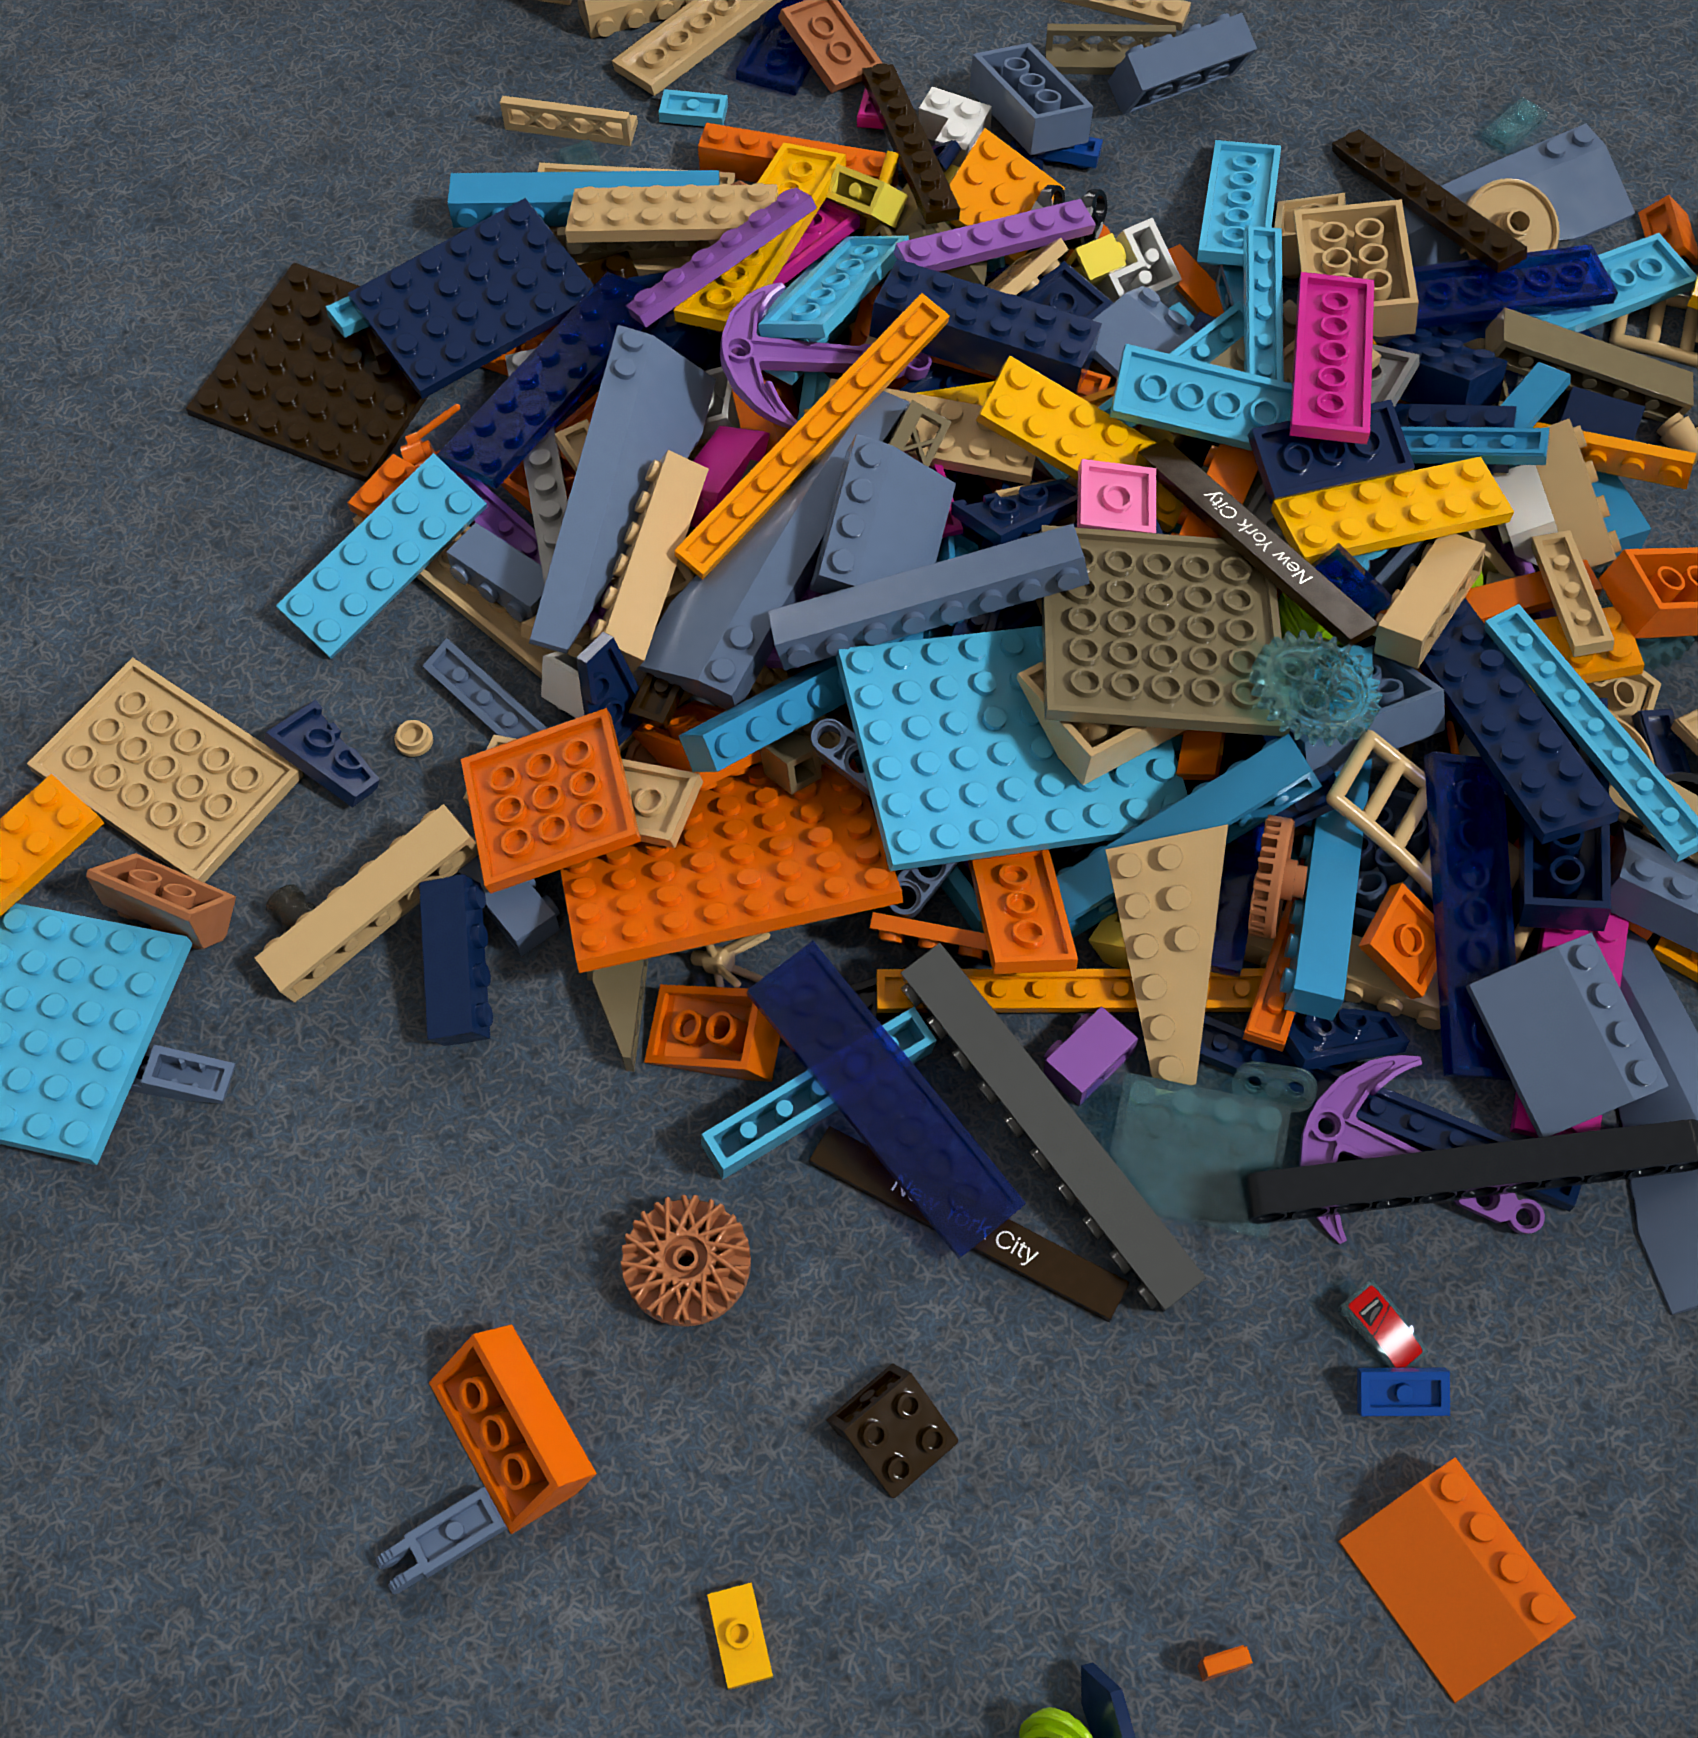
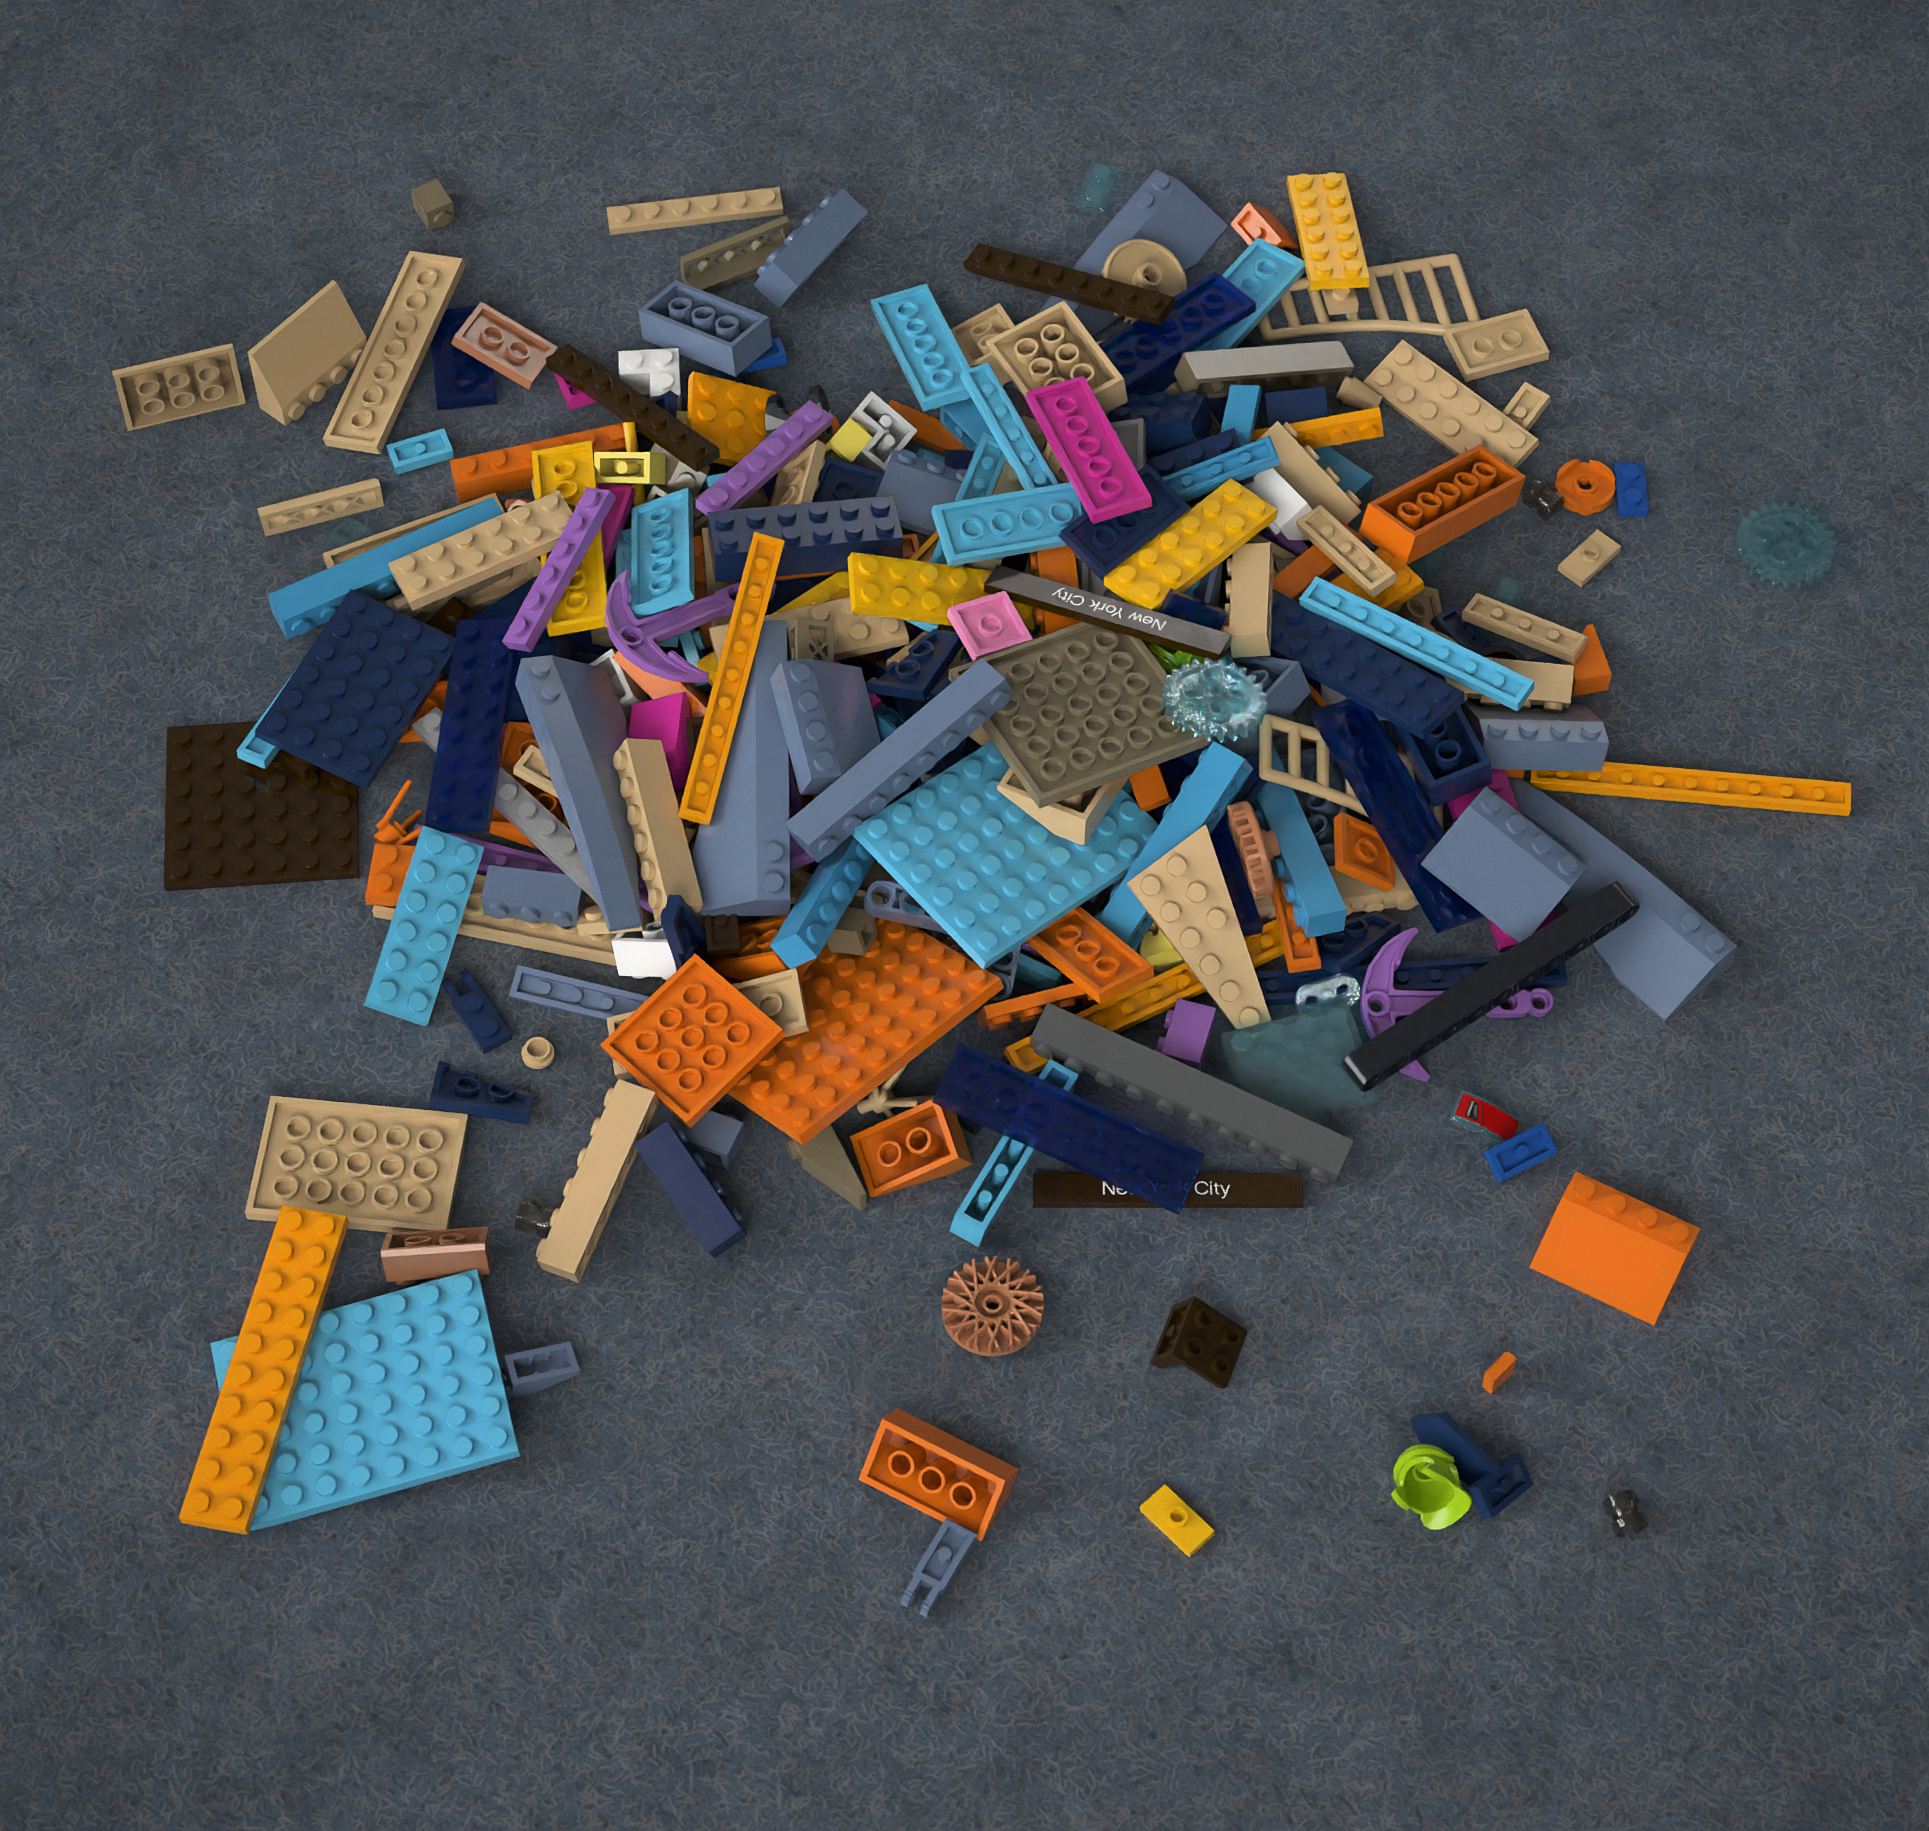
camera: 30 degrees left, 5 degrees down
(384, 670) = (477, 1014): none -> dark blue hinge

